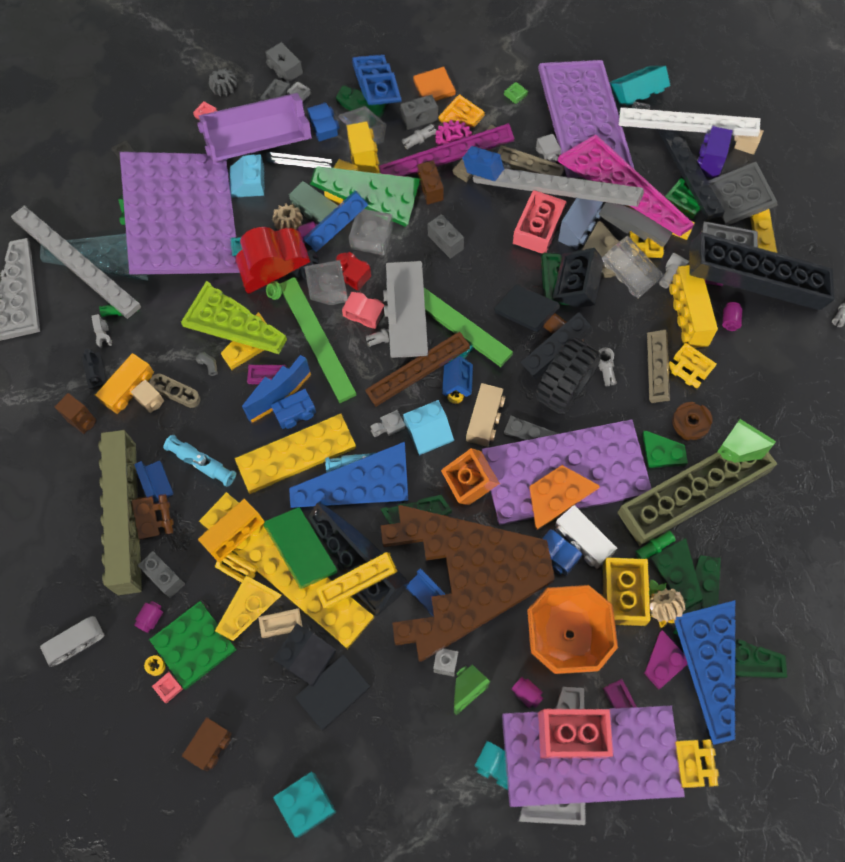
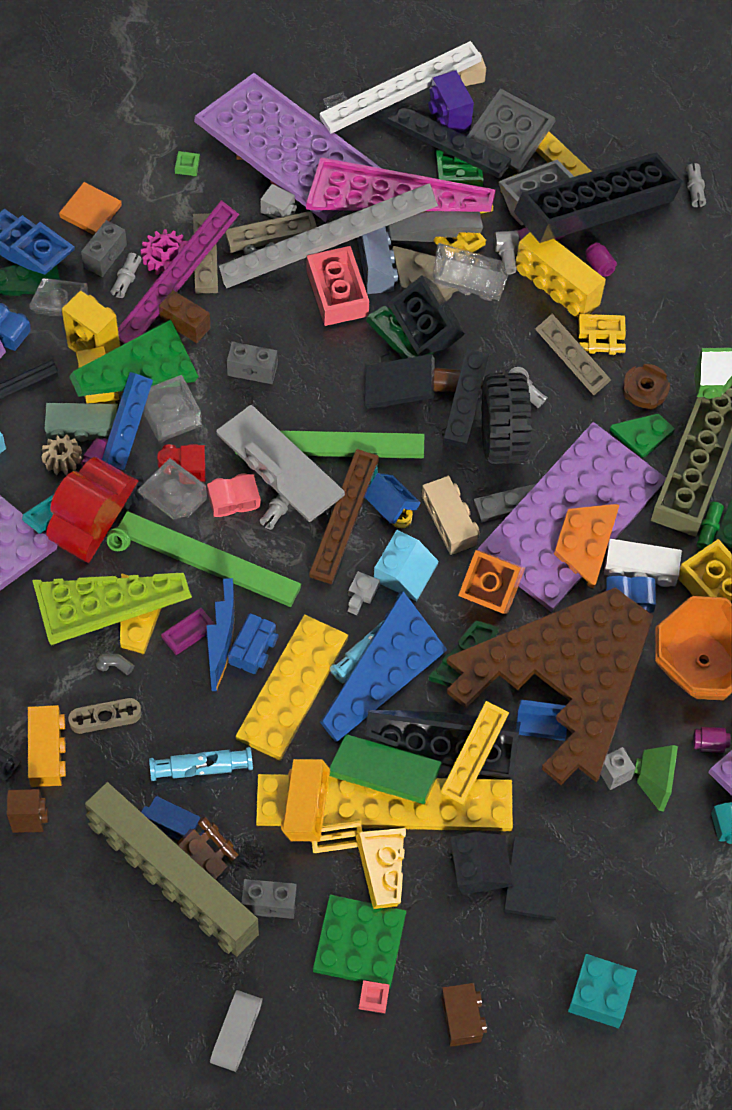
camera: 45 degrees left, 5 degrees down
(147, 396) = (83, 741): tan brick -> none
(148, 616) = (292, 948): magenta brick -> none
(149, 669) = (345, 981): yellow bush -> none
(279, 623) = (427, 856): tan tile -> none
(462, 110) = (148, 218): light orange wing -> none
(483, 163) = (230, 260): blue brick -> none
(640, 84) = (312, 75): teal slope -> none

